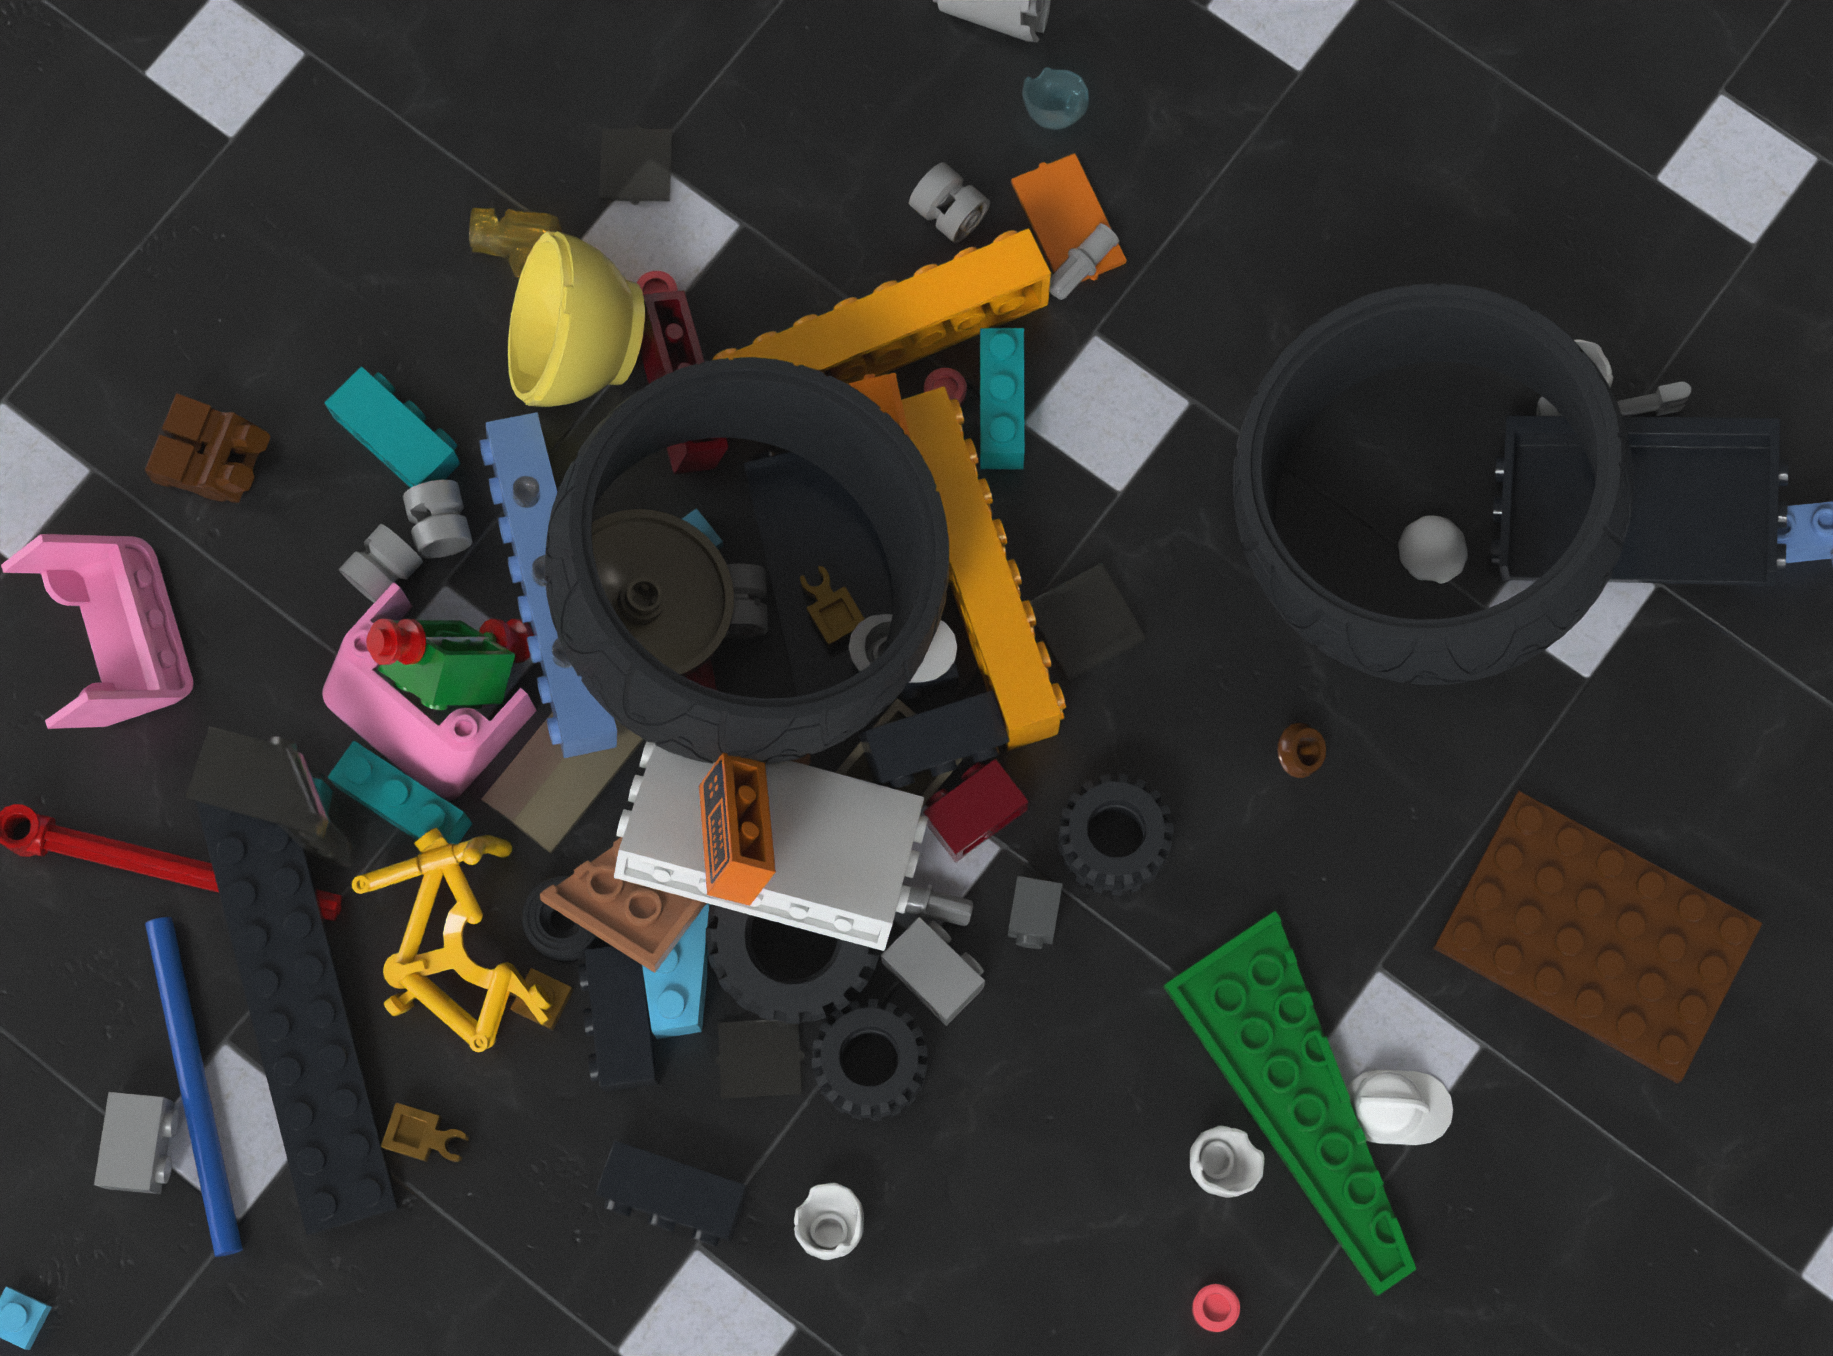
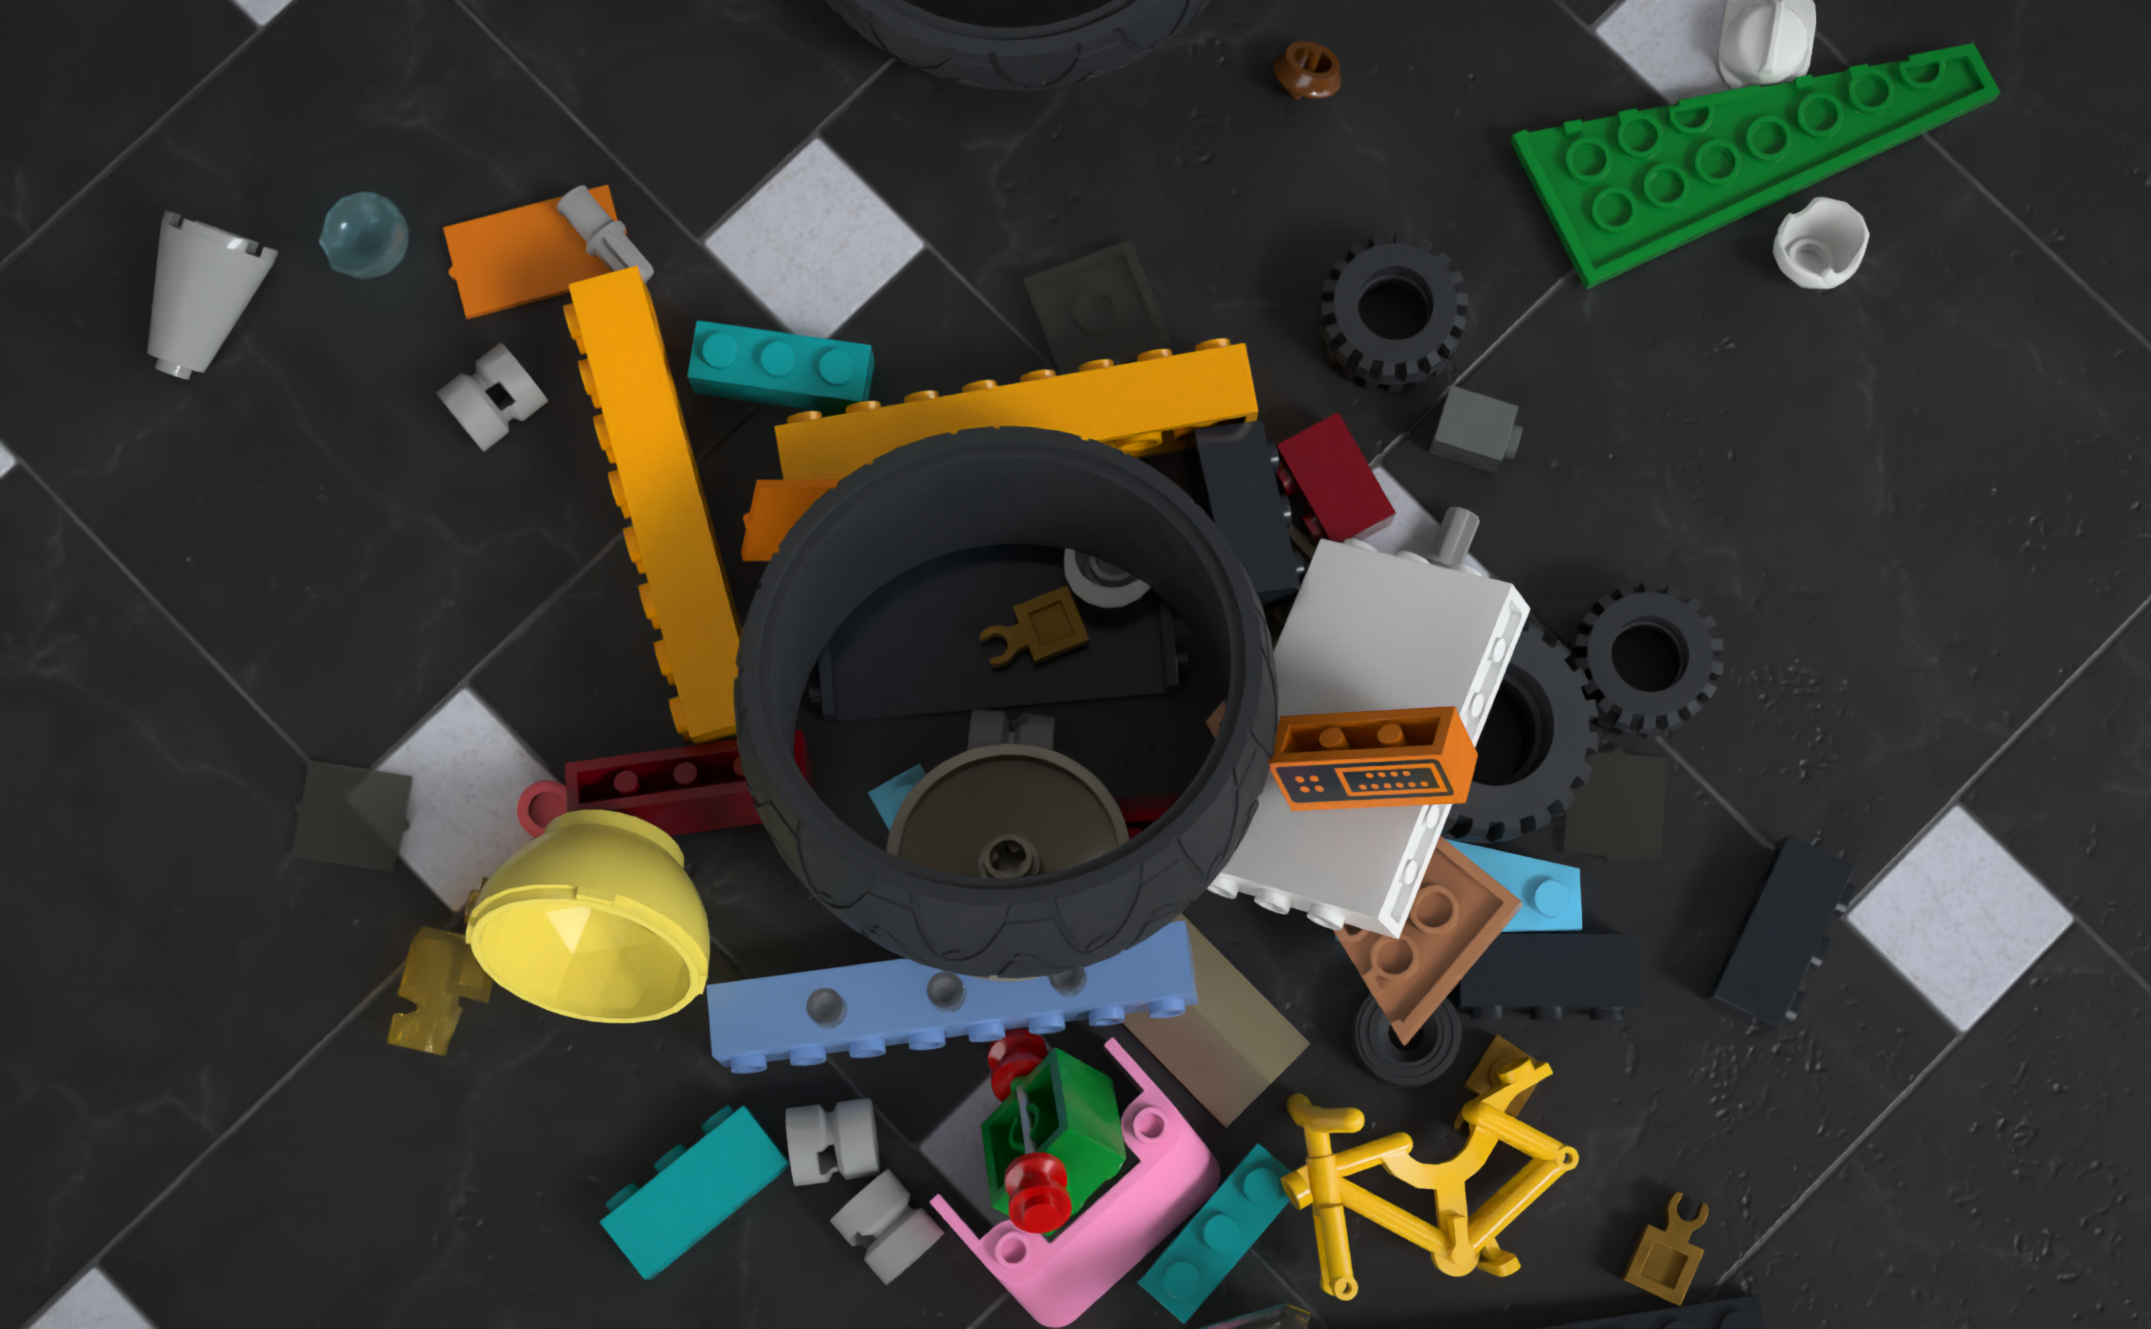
camera: 85 degrees left, 5 degrees up
(829, 1221) = (1841, 739): white hair -> none
(934, 969) = (1544, 558): light grey brick -> none
(951, 379) = (750, 445): coral tile -> none
(1216, 1308) = (1988, 290): coral tile -> none

